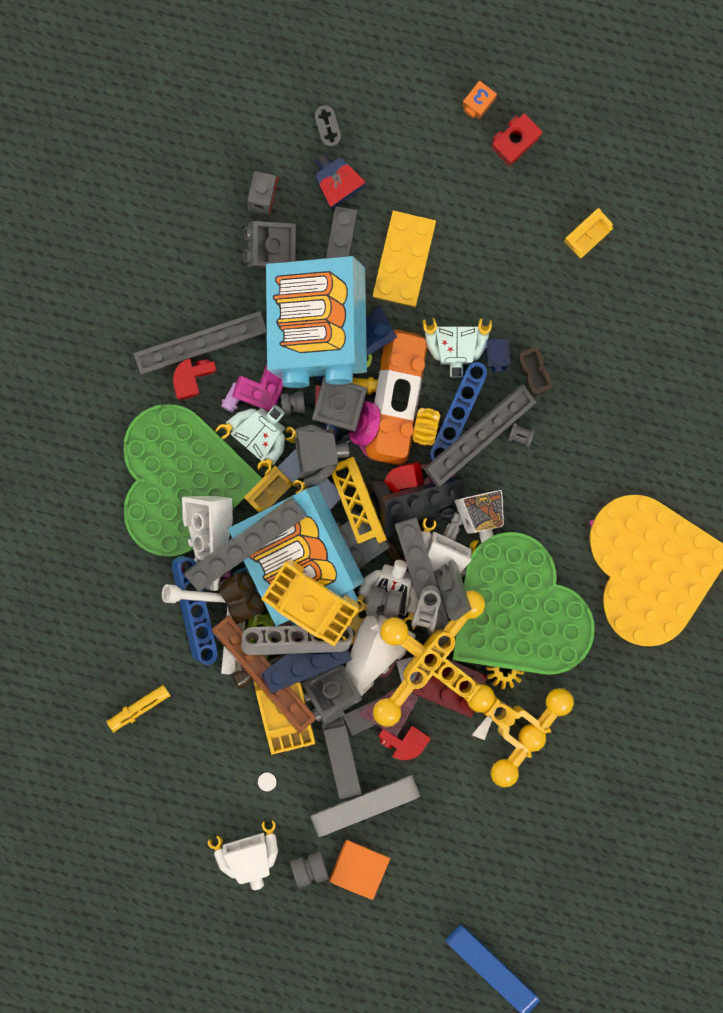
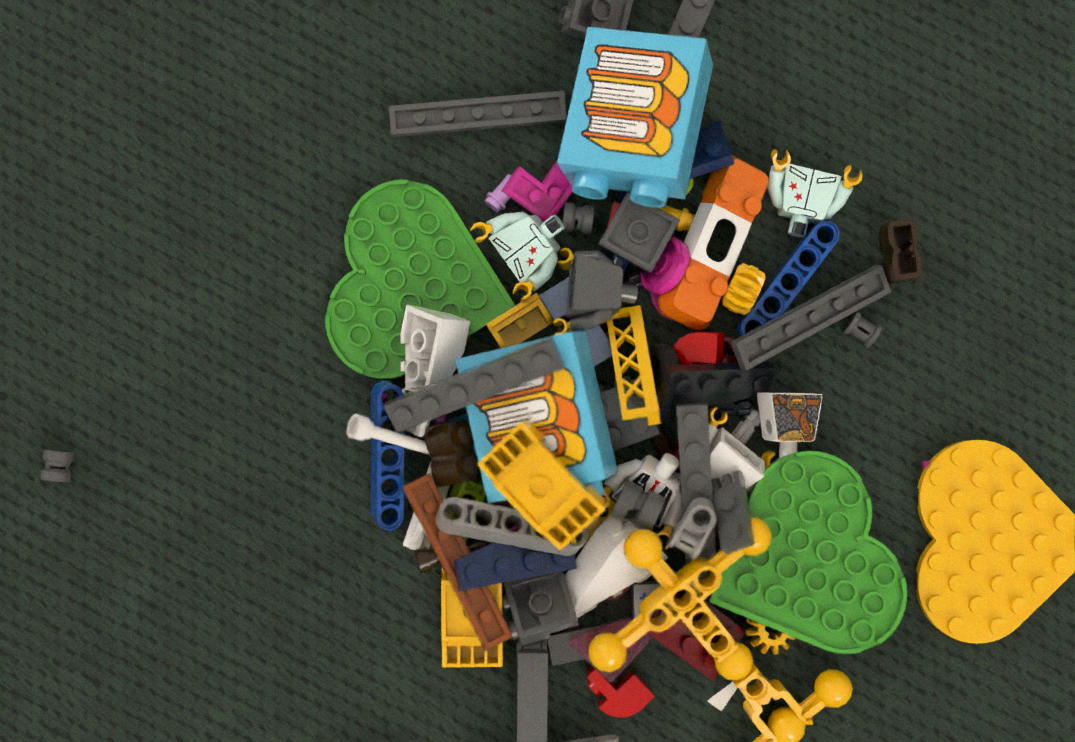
camera: 10 degrees right, 0 degrees up
(138, 708) = (278, 566): yellow pin -> none
(185, 377) = (448, 151): red brick -> none
(267, 781) = (428, 698): white sticker -> none
(404, 259) = (763, 69): yellow plate -> none
(497, 354) = (857, 219): clear blue brick -> none
(589, 233) = (1009, 91): yellow hinge -> none

